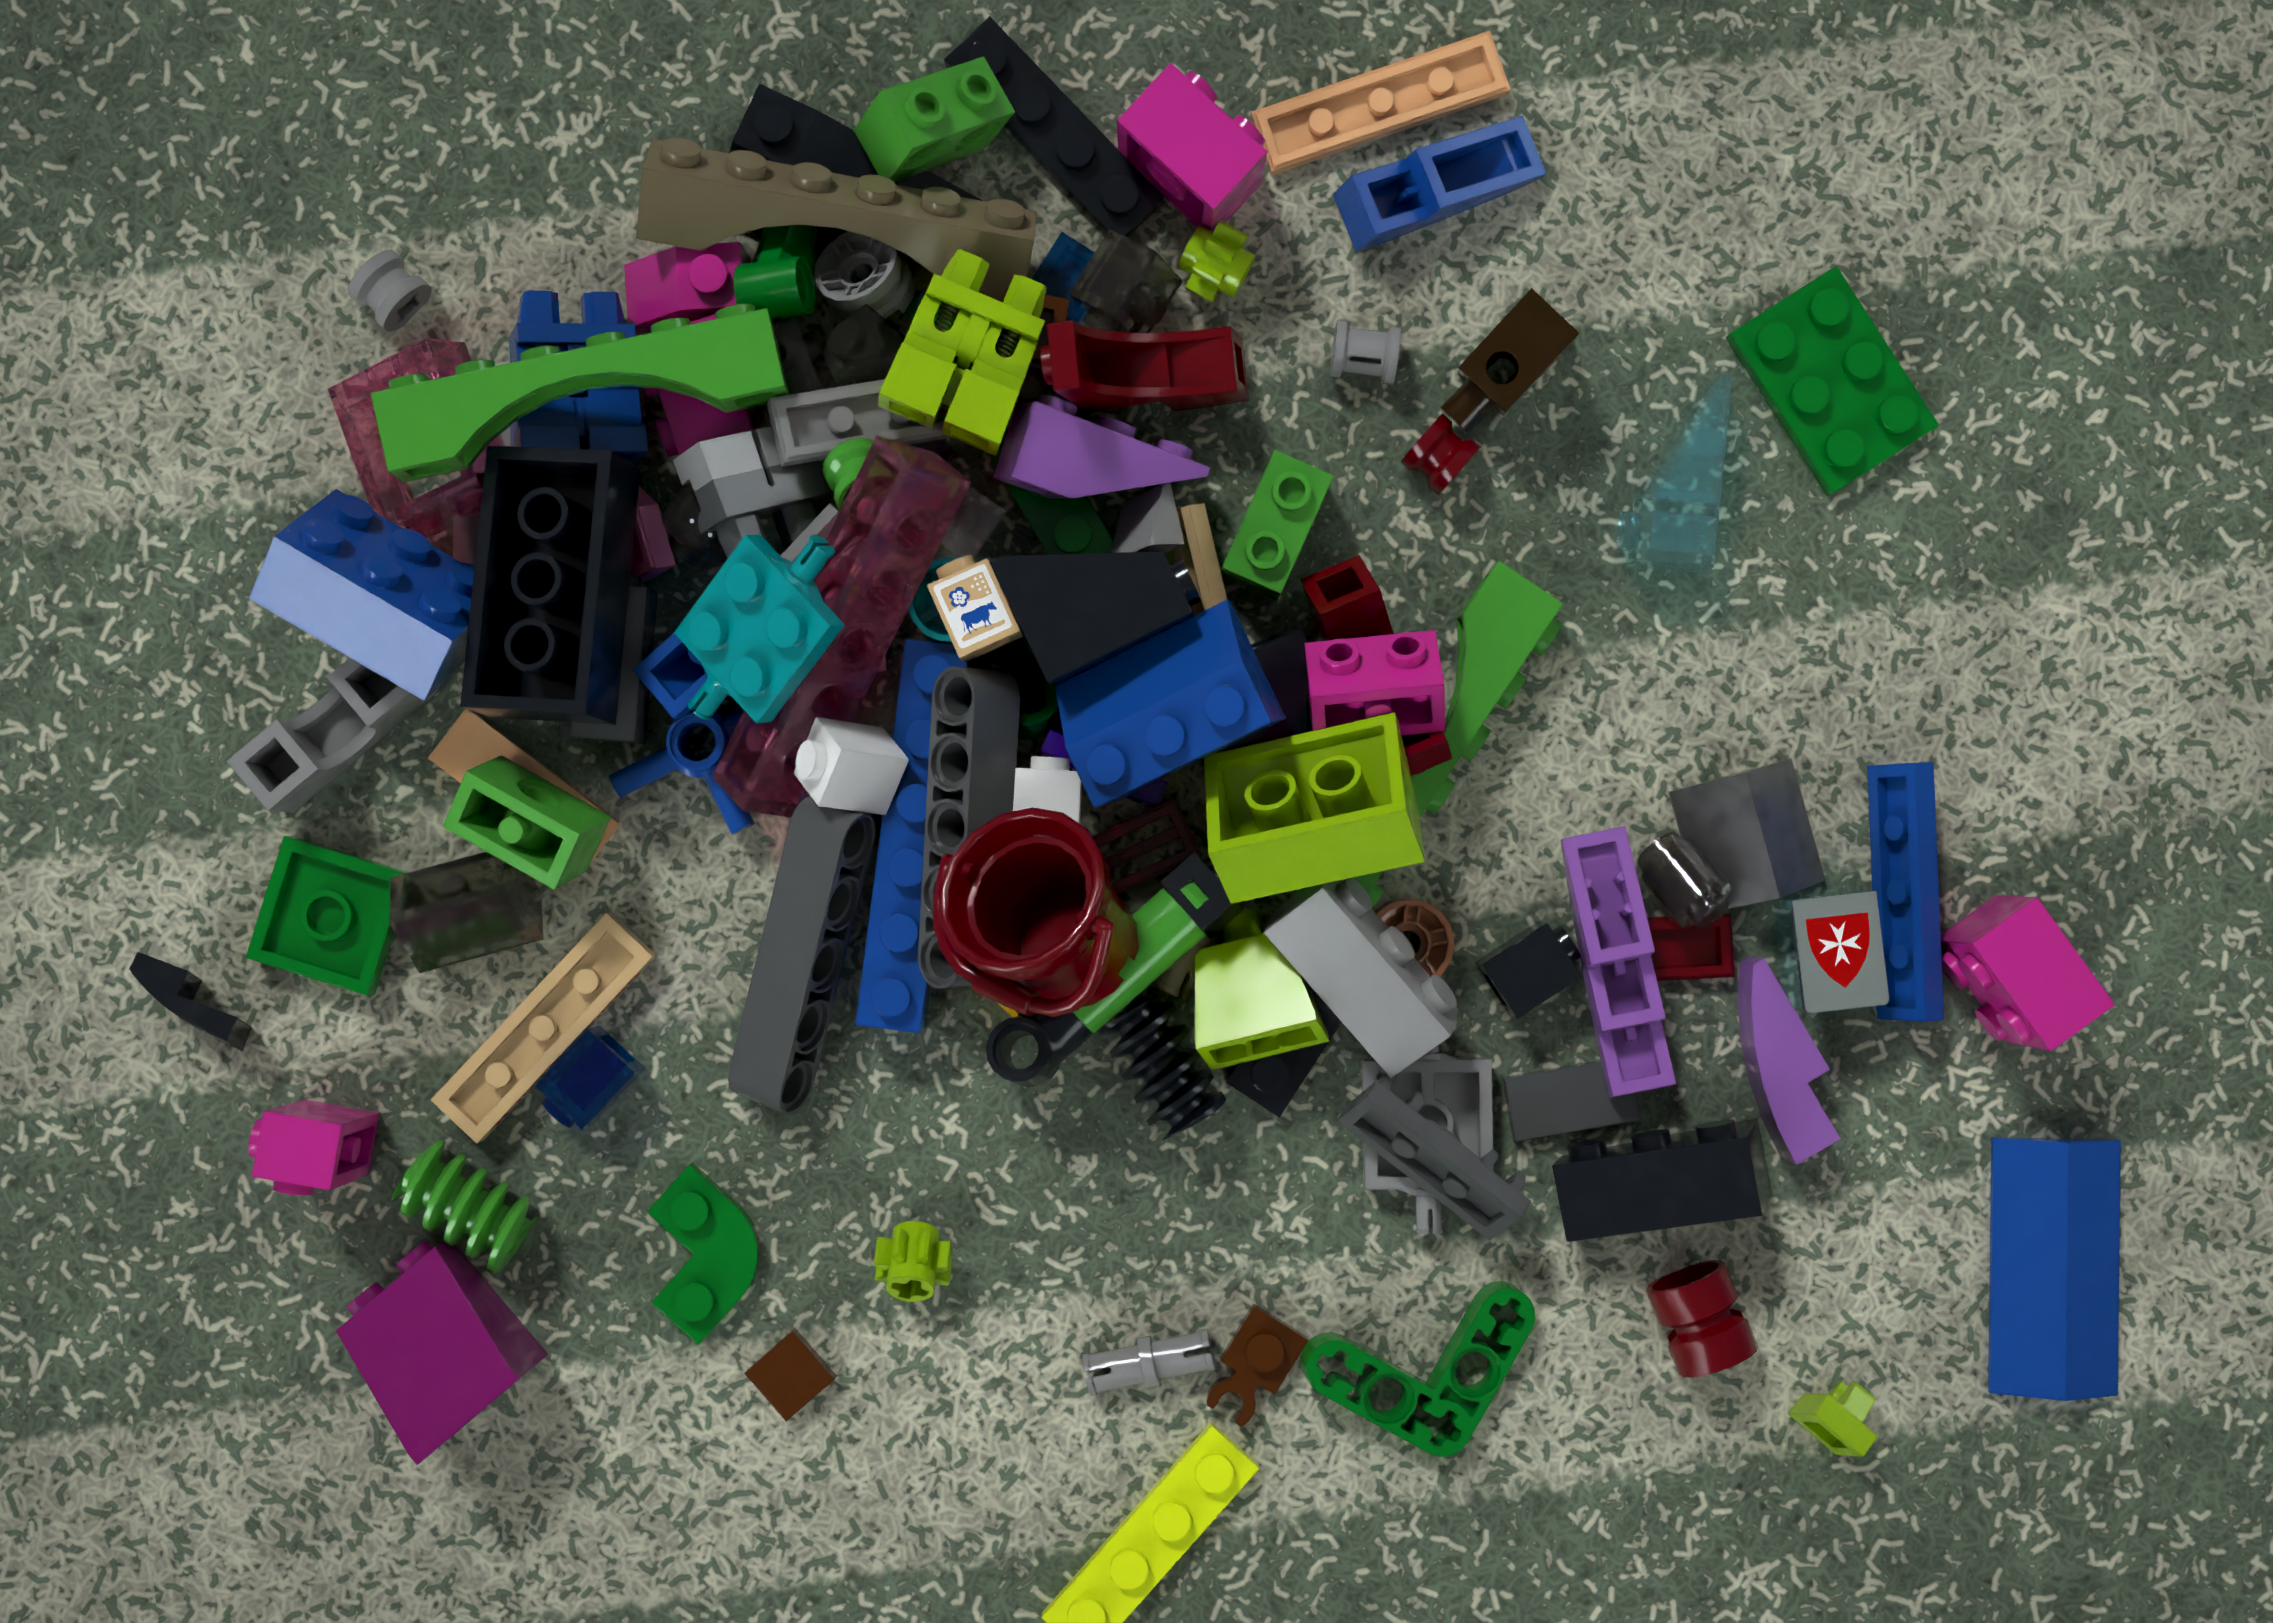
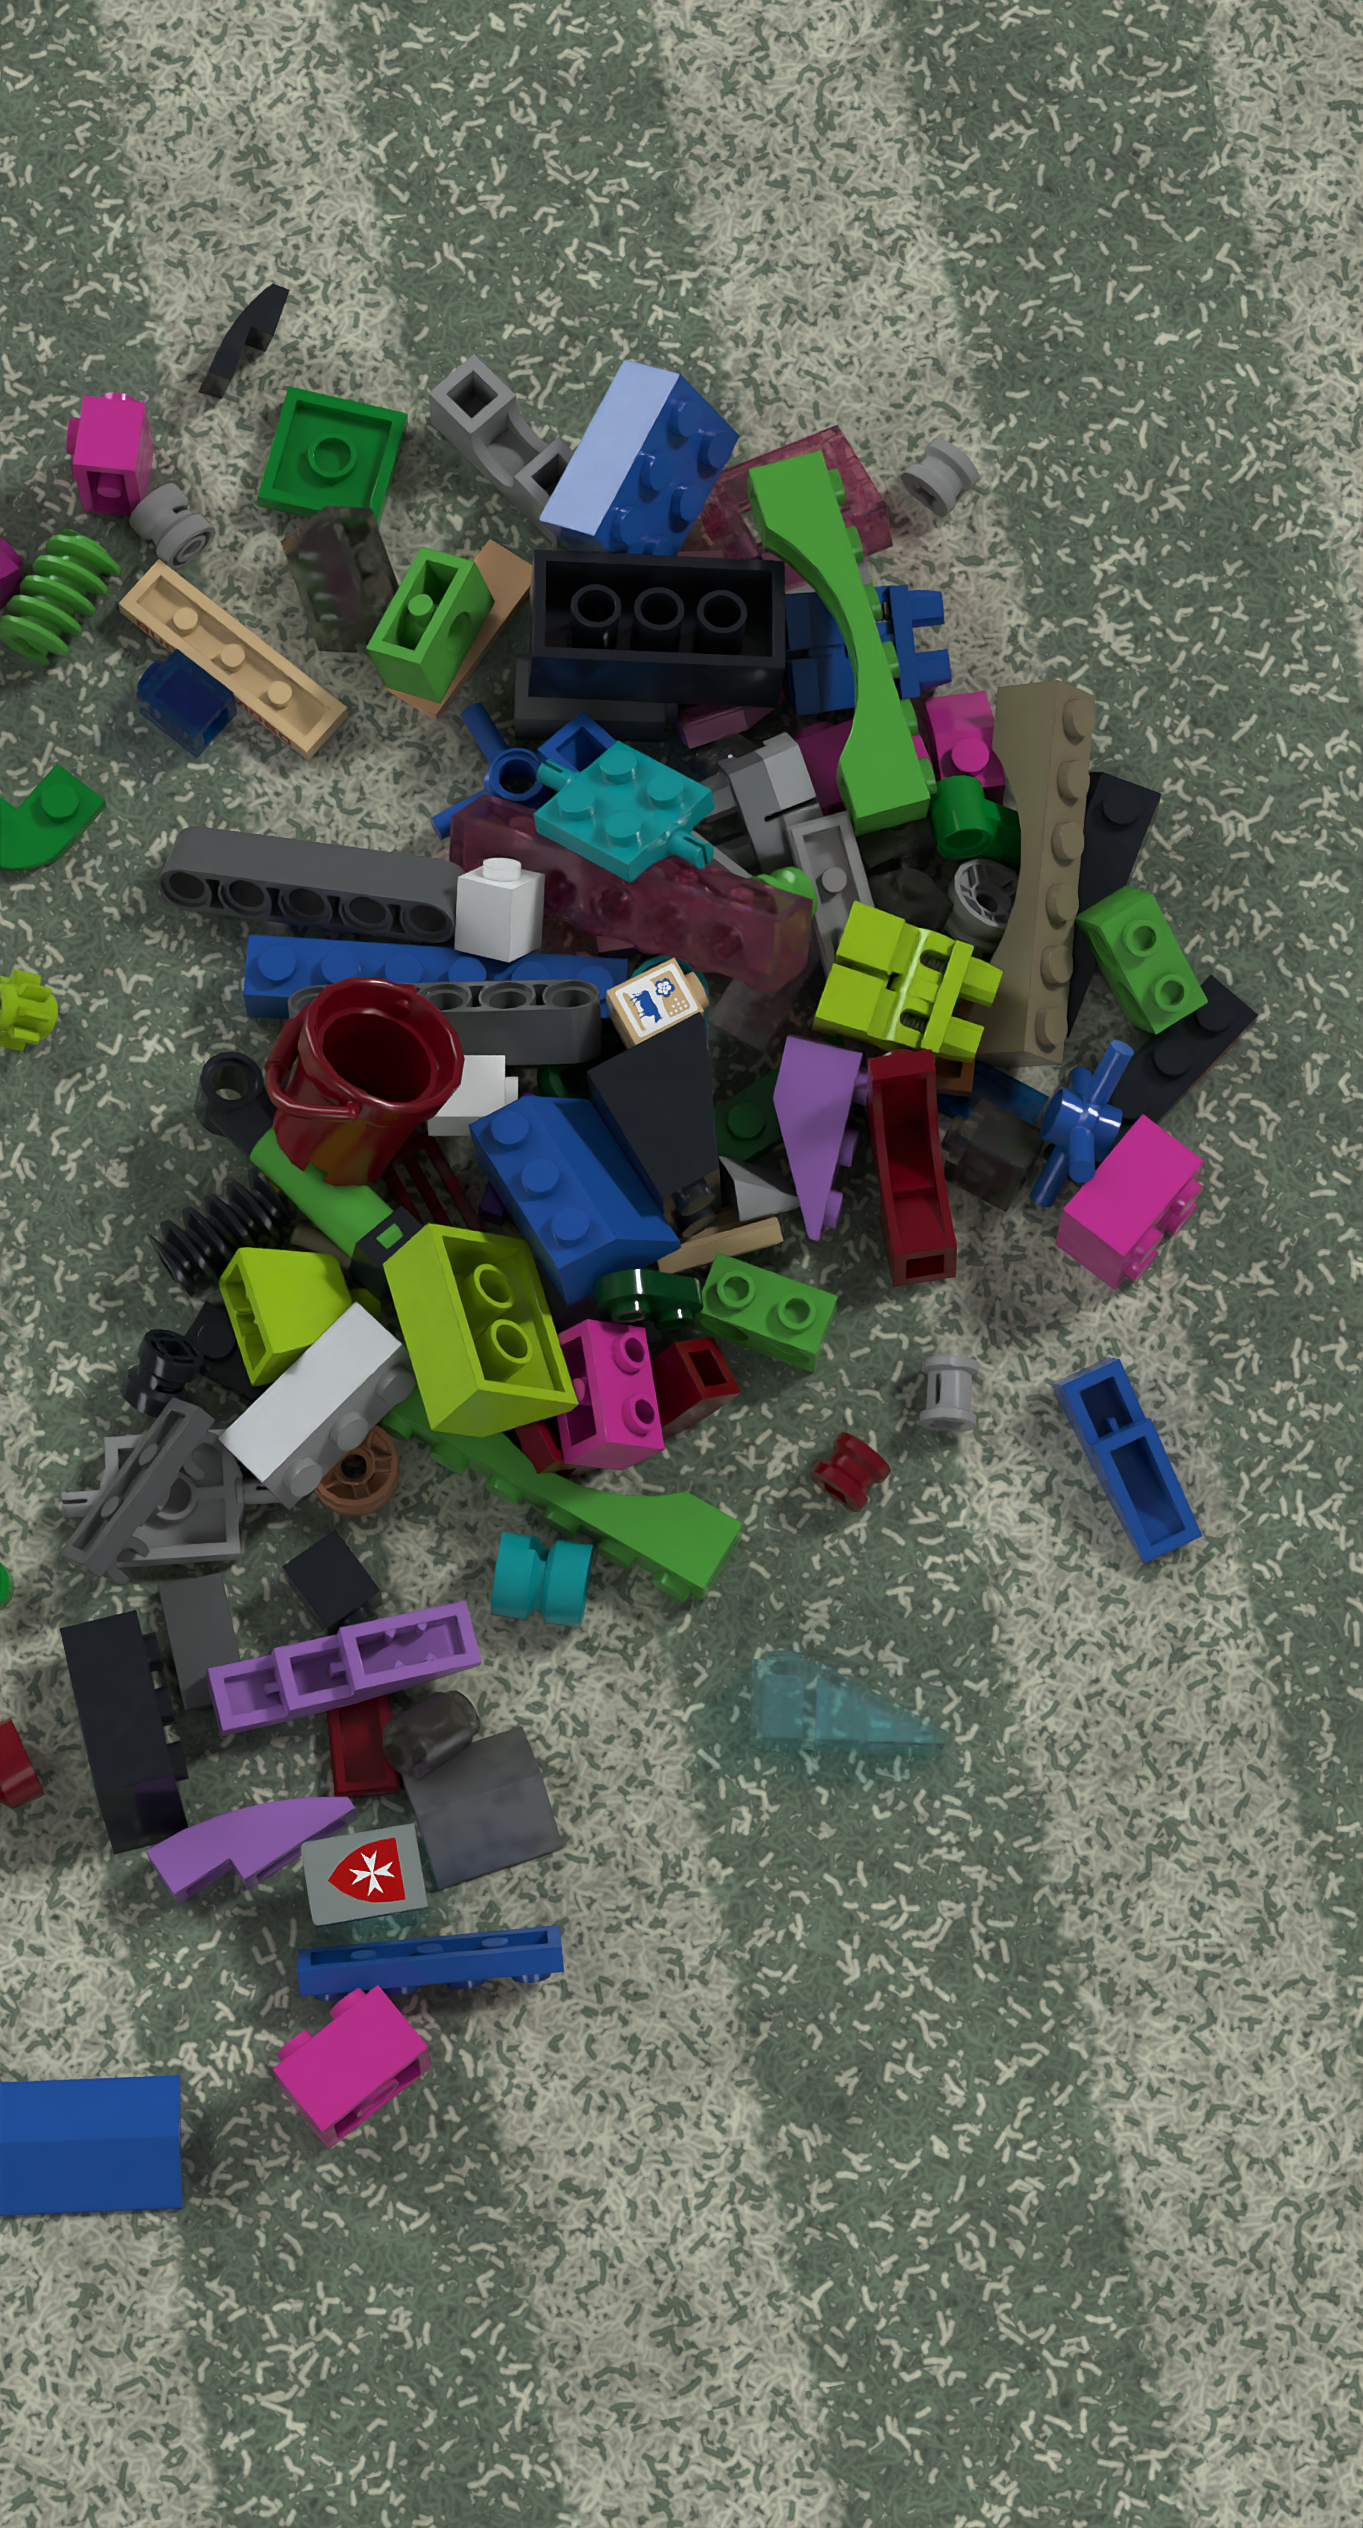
camera: 80 degrees right, 15 degrees down
(393, 1084) = (171, 526): none -> light grey wheel
(1107, 191) = (1081, 1124): none -> blue bar
(1216, 261) = (1027, 1241): lime gear -> none
(1283, 636) = (650, 1297): none -> dark green plate
(1304, 1130) = (163, 1370): none -> black wheel
(1381, 102) = (1206, 1399): light nougat tile -> none
(1530, 338) = (949, 1530): dark brown torso -> none
(1536, 762) = (541, 1579): none -> teal wheel
(1832, 381) = (955, 1866): green plate -> none

